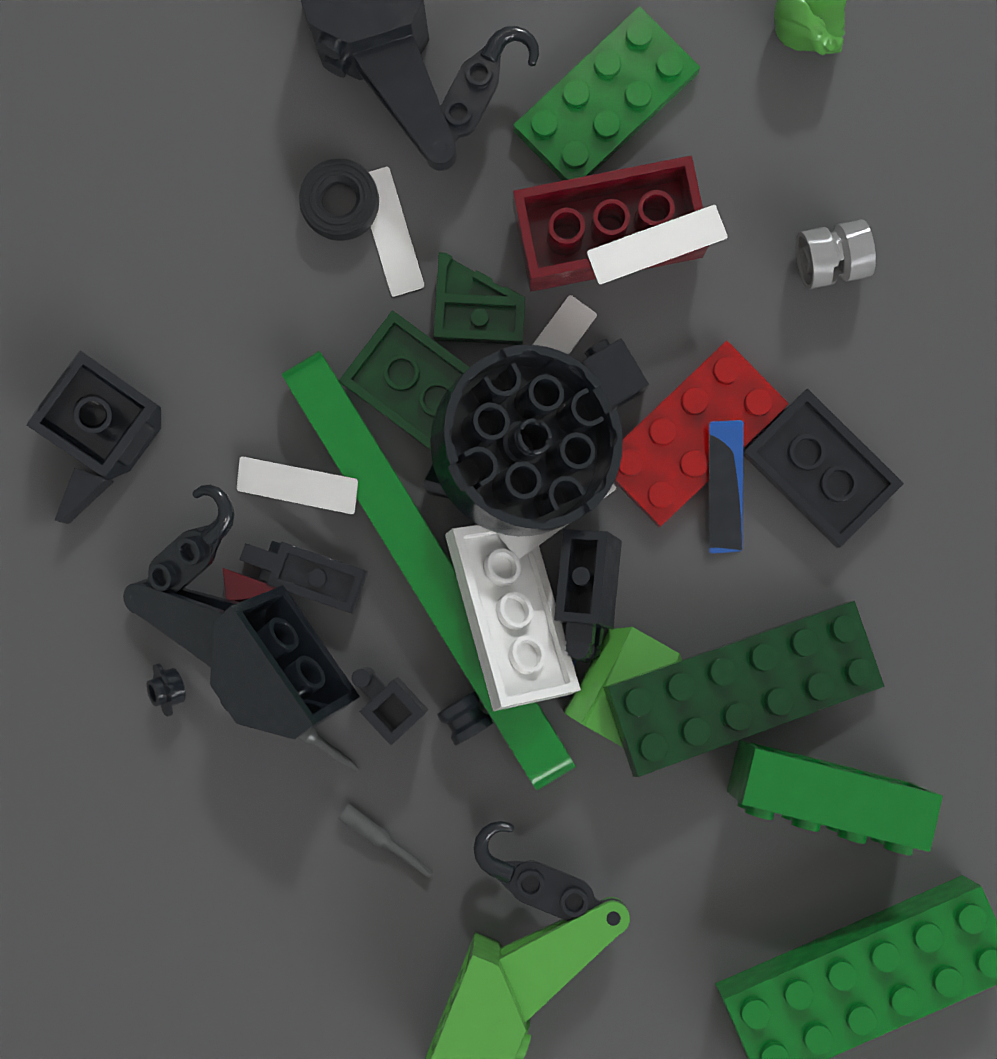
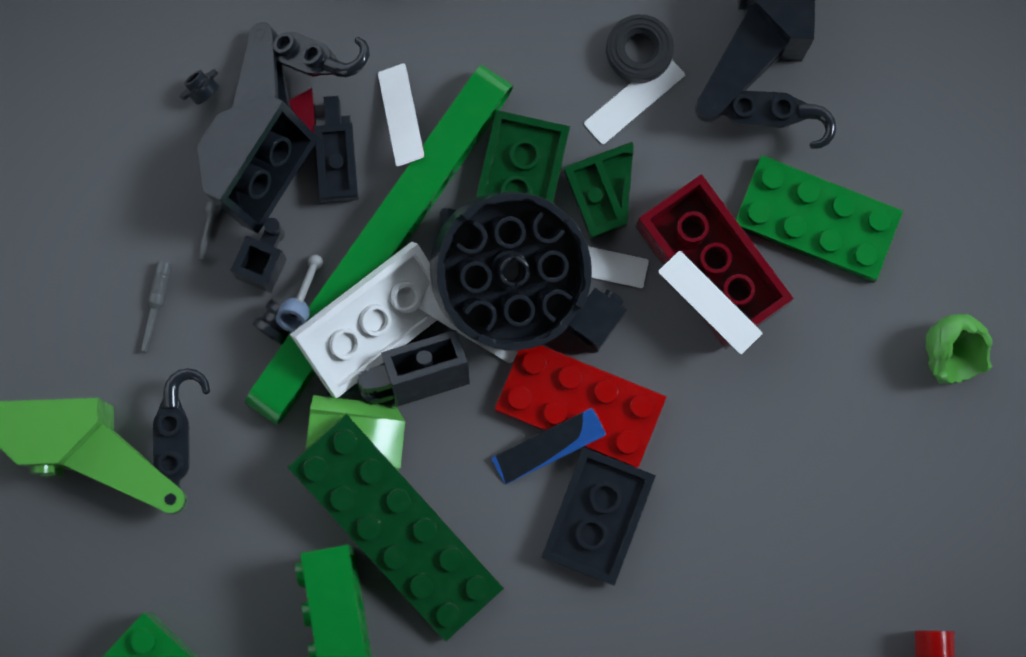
camera: 55 degrees right, 5 degrees down
(467, 695) = (297, 305): none -> sand blue hinge
(842, 253) = (774, 450): light grey wheel -> none

